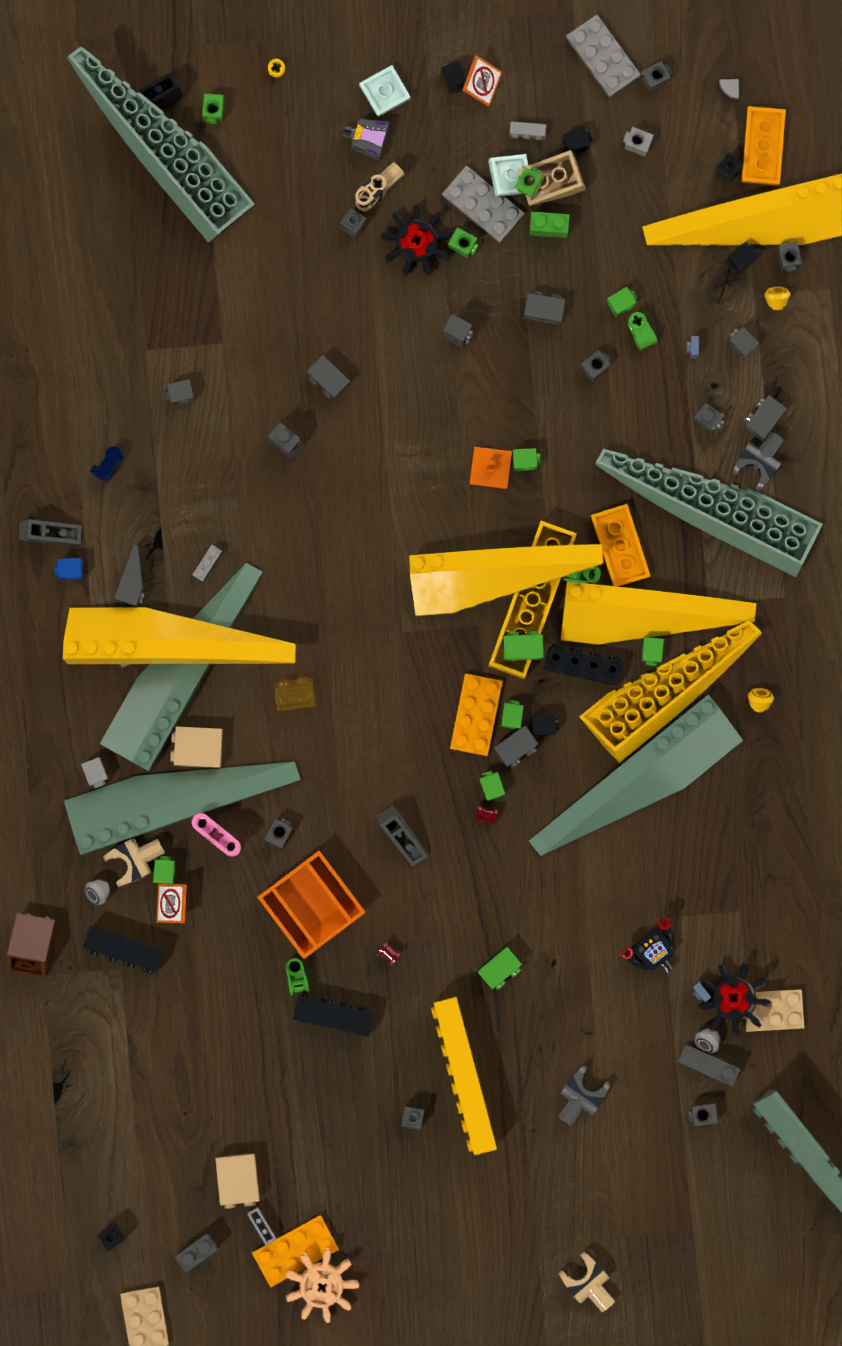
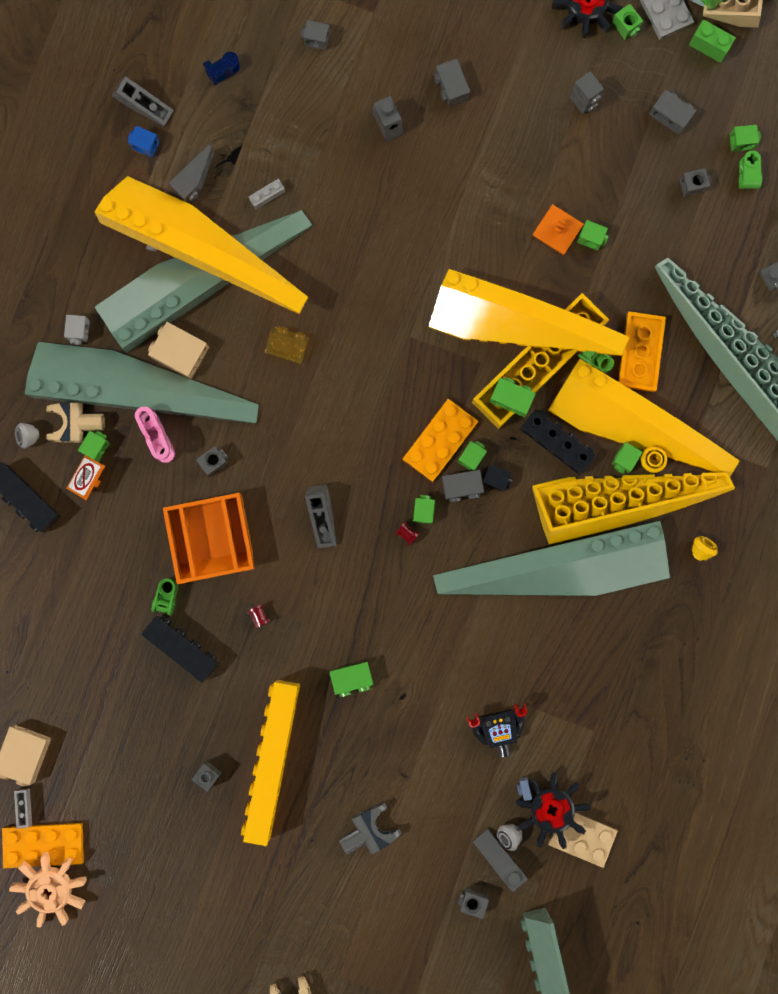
camera: 25 degrees right, 0 degrees up
(683, 642) = (654, 459): none -> yellow cone

